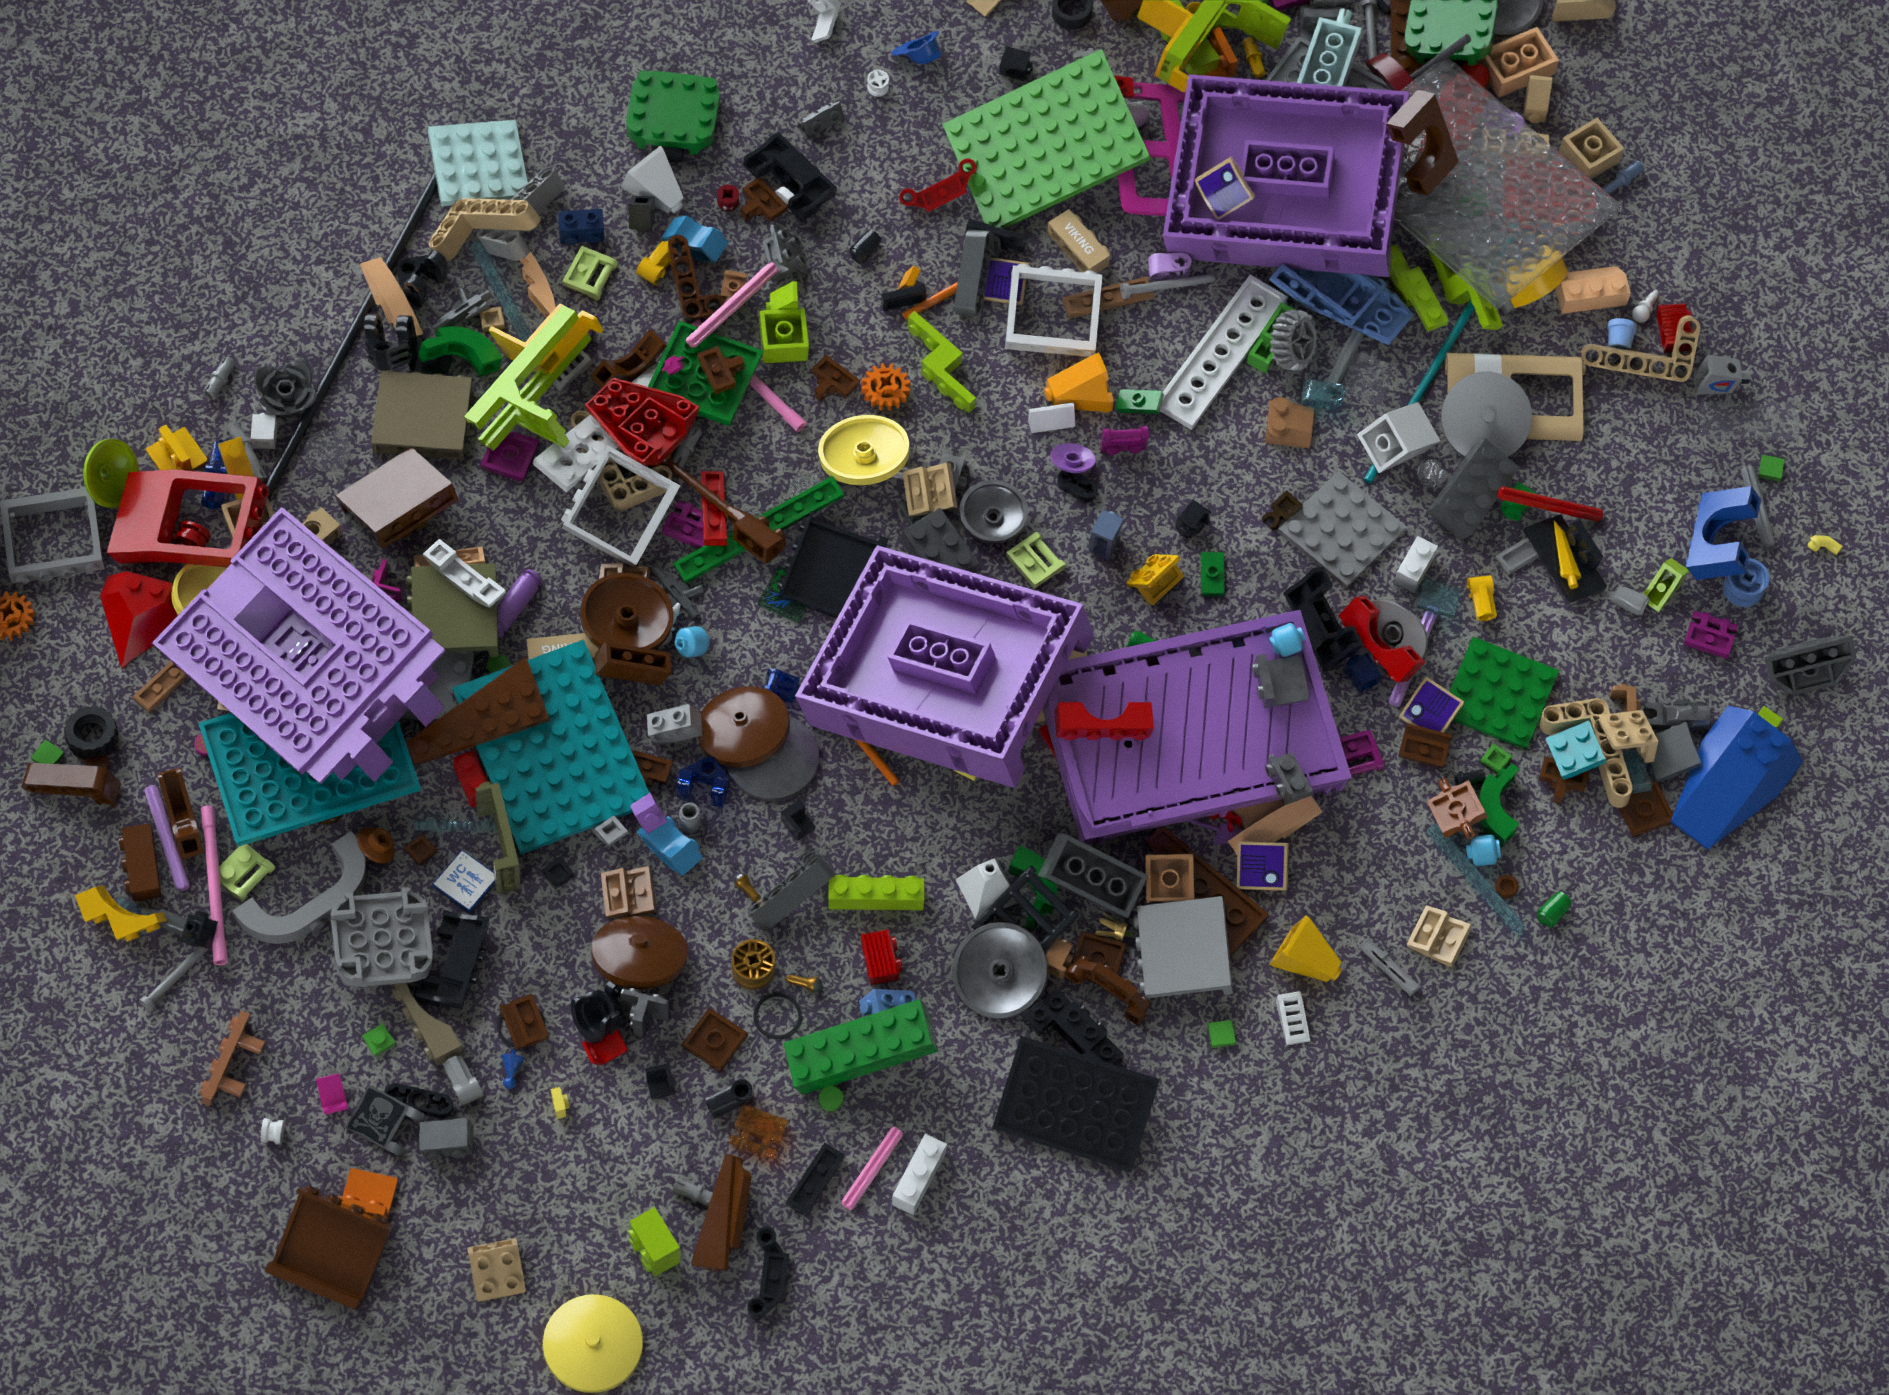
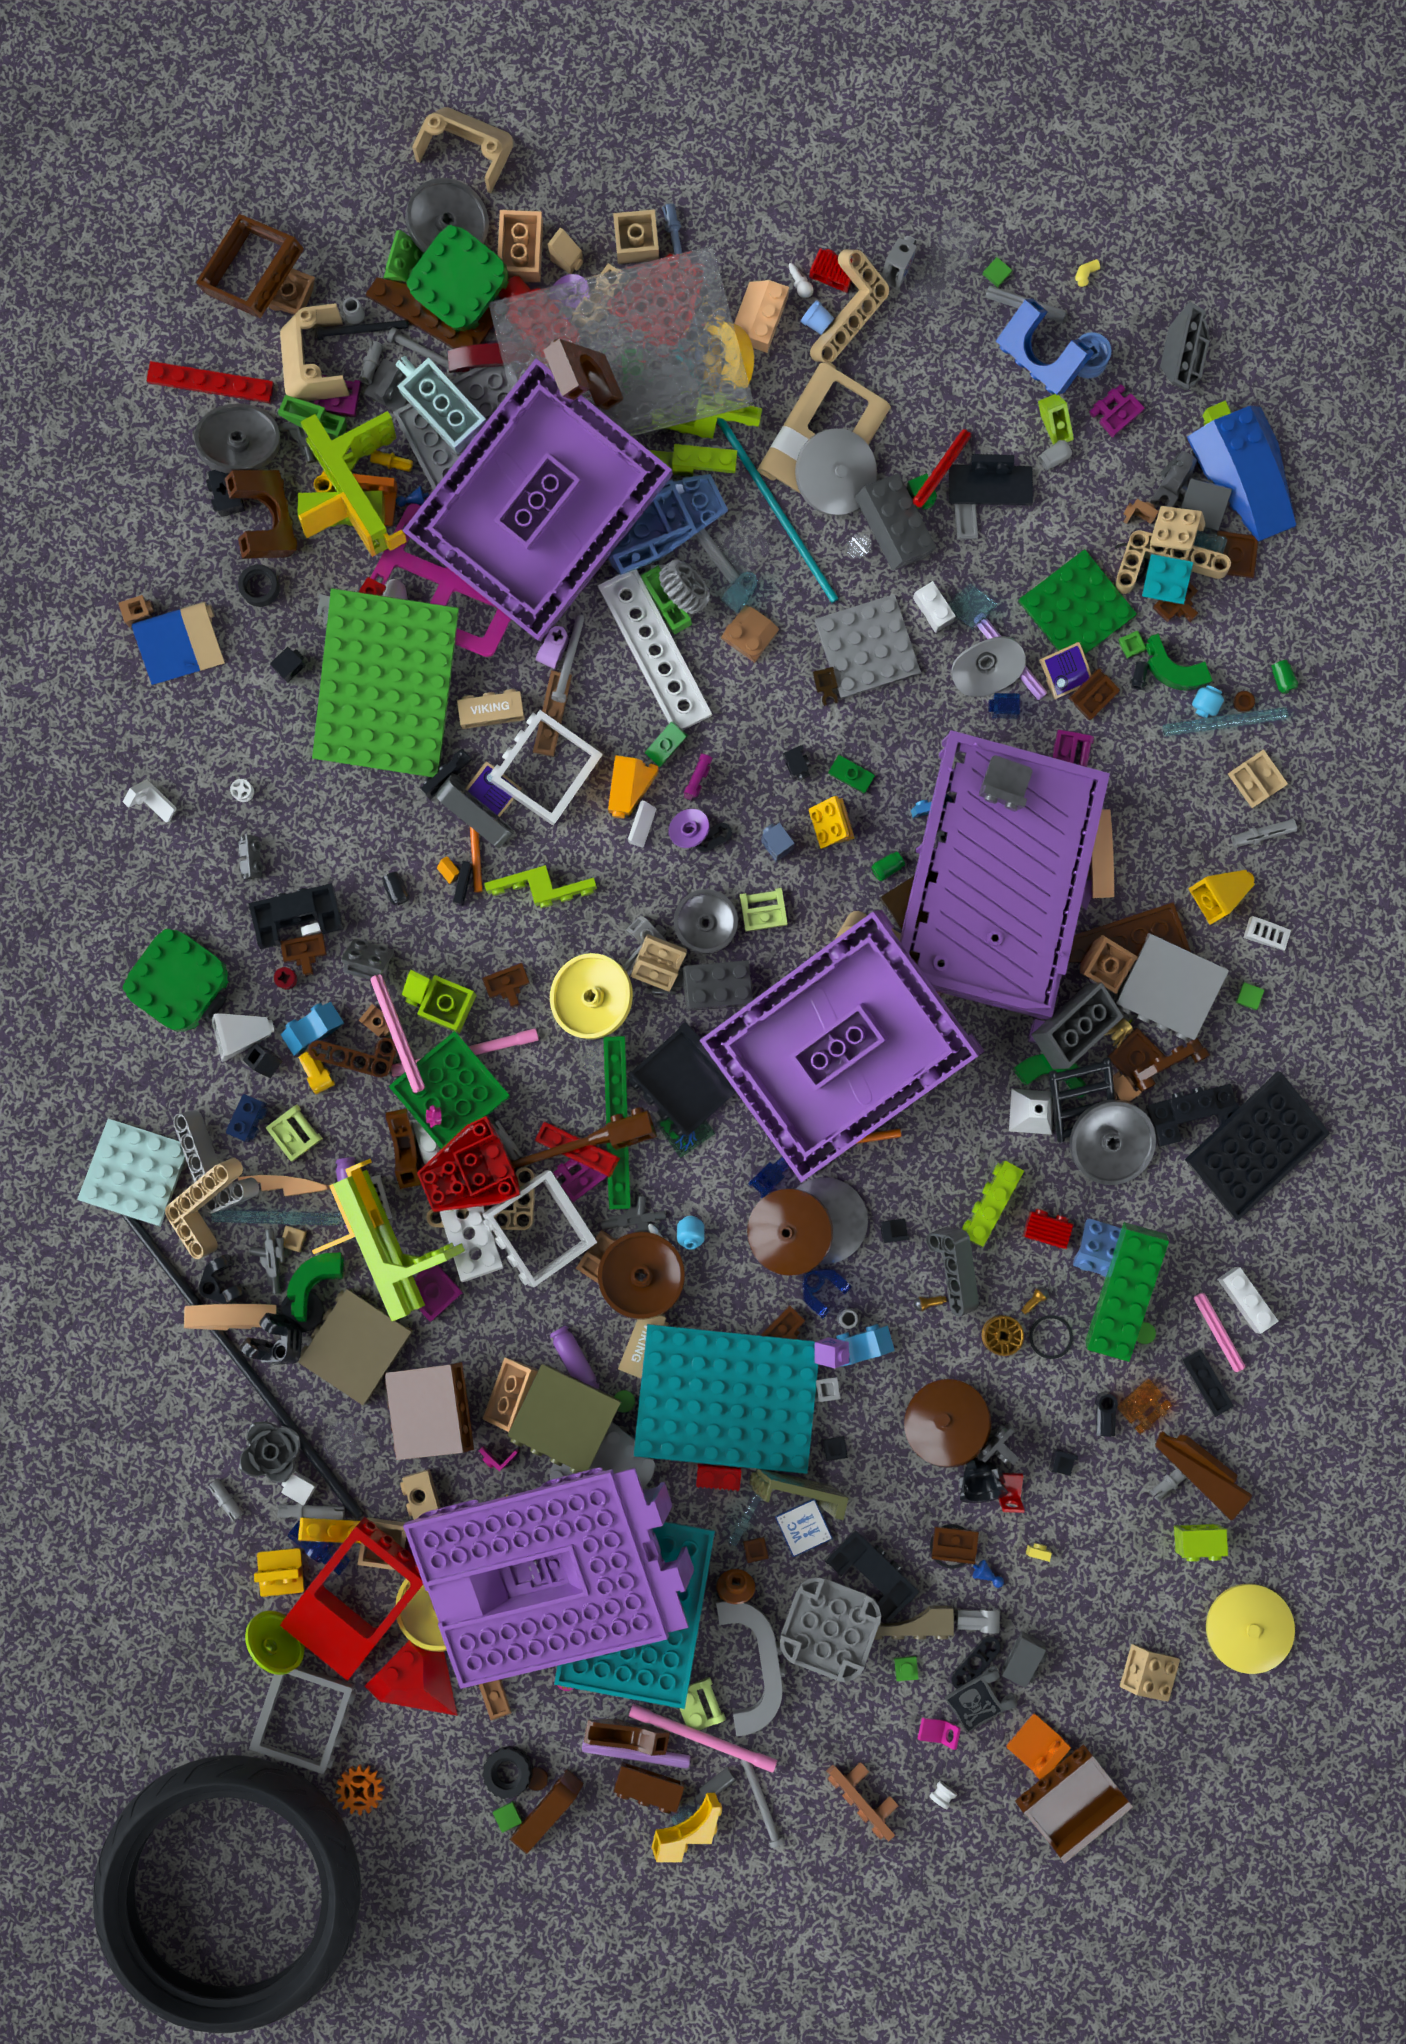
camera: 55 degrees left, 20 degrees up
(192, 535) = (371, 1601): red wheel -> none
(199, 930) = (741, 1773): black brick -> none
(462, 575) = (543, 1398): white slope -> none
(496, 710) = (677, 1433): reddish brown wing -> none
(628, 892) = (883, 1400): medium nougat slope -> none
(632, 663) = (689, 1294): reddish brown brick -> none
(674, 724) = (760, 1288): light grey brick -> none
(714, 1039) = (1046, 1398): reddish brown tile -> none
(720, 369) = (457, 1079): reddish brown hinge -> none
(773, 1275) = (1271, 1460): black plate -> none
(888, 394) = (548, 940): orange gear -> none
(920, 50) = (228, 736): blue piece -> none
(941, 192) = (379, 796): red plate -> none
(1076, 722) = (982, 924): red arch -> none
(1224, 188) = (526, 564): slope -> none
(1262, 865) = (1131, 883): dark purple slope -> none
(1287, 640) = (976, 757): medium azure head -> none
(1288, 777) = (1088, 824): flat silver bracket -> none
(1326, 637) = (947, 715): black bracket -> none
(1398, 436) = (816, 553): white slope -> none
(1399, 662) = (1017, 673): red arch -> none
(1443, 55) = (490, 297): dark grey bar -> none
(1456, 808) = (1164, 702): plate -> none
(1482, 597) = (985, 569): yellow piece -> none
(1567, 563) = (997, 485): yellow bar -> none

